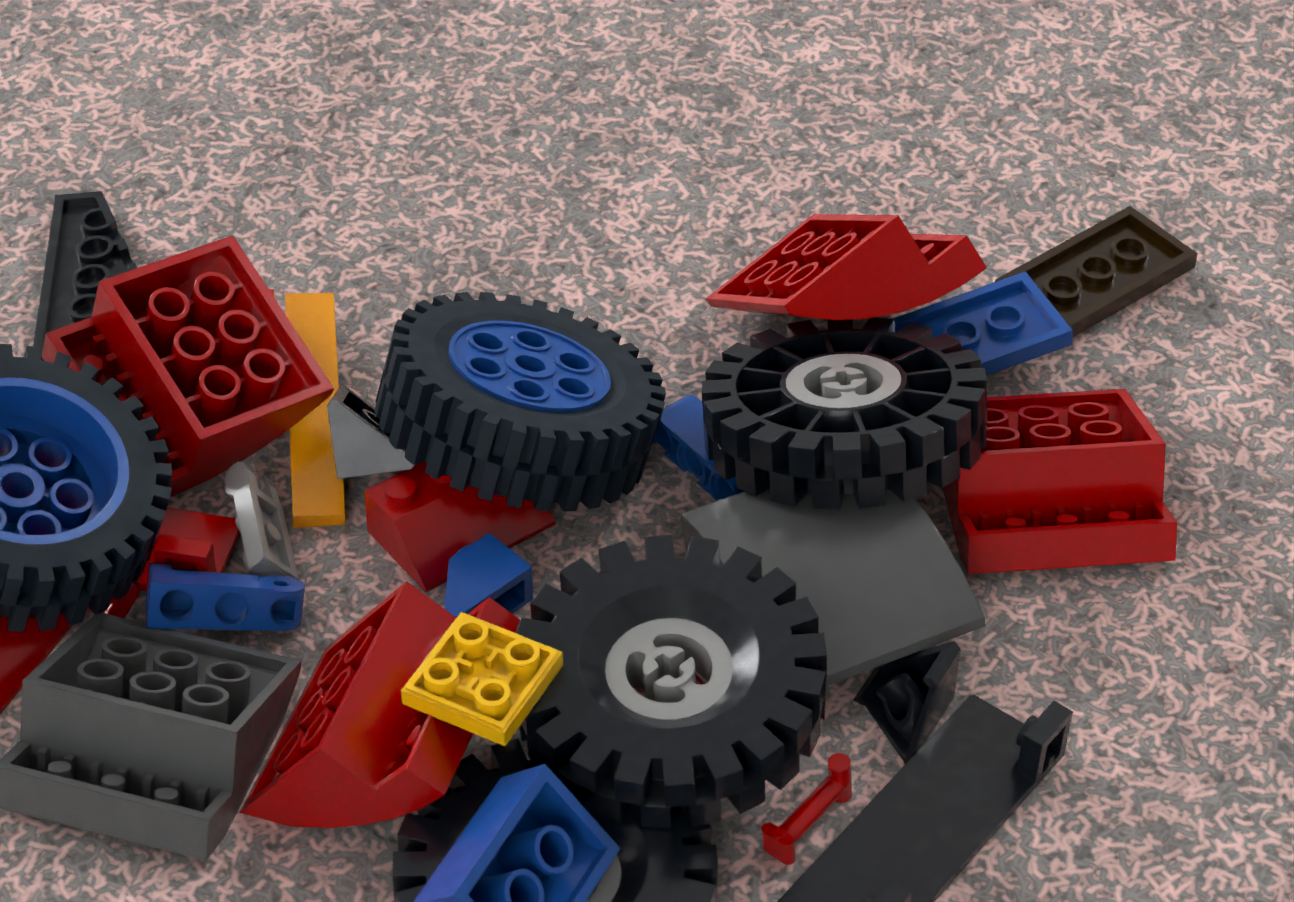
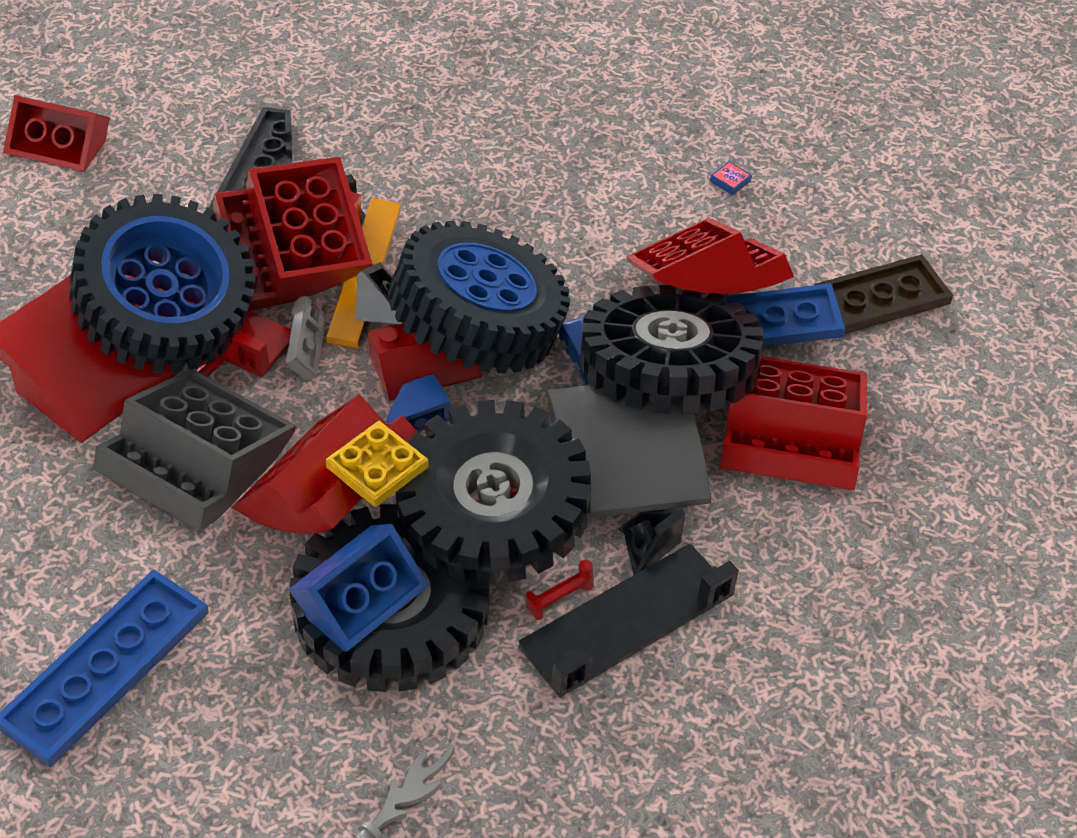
camera: 15 degrees right, 5 degrees up
(221, 600) = (263, 378): blue leg -> none
(808, 157) = (730, 178): none -> tile

